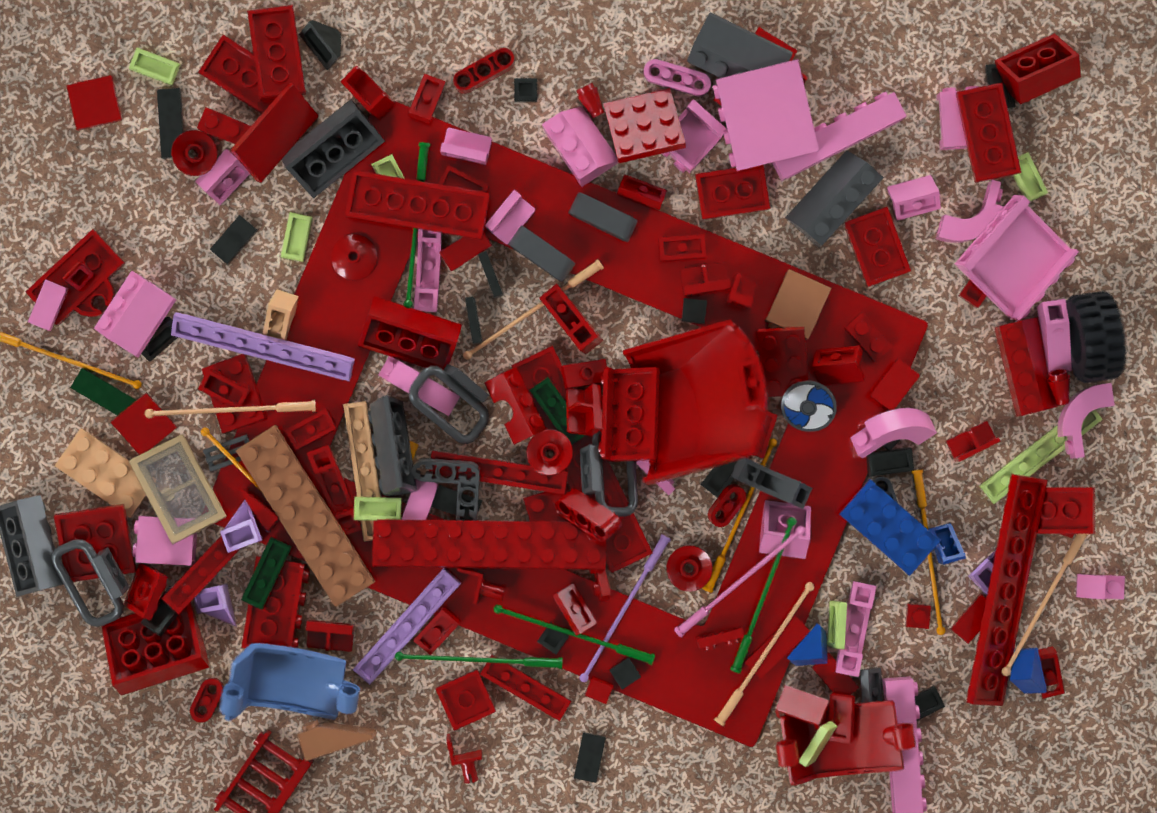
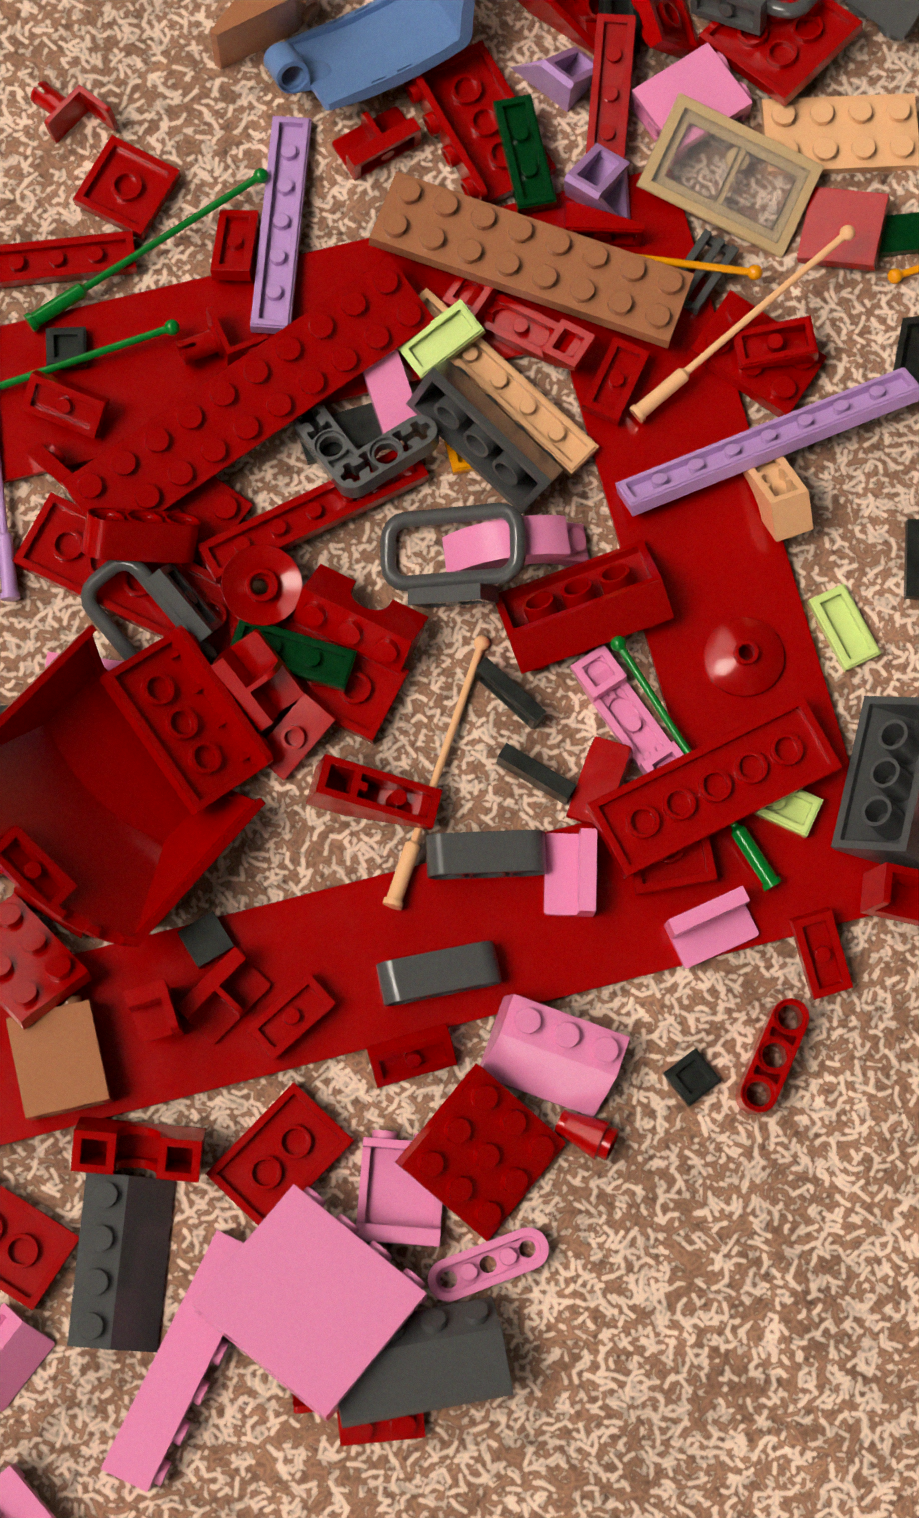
camera: 135 degrees right, 10 degrees down
(779, 232) = (112, 1144): none -> red arch

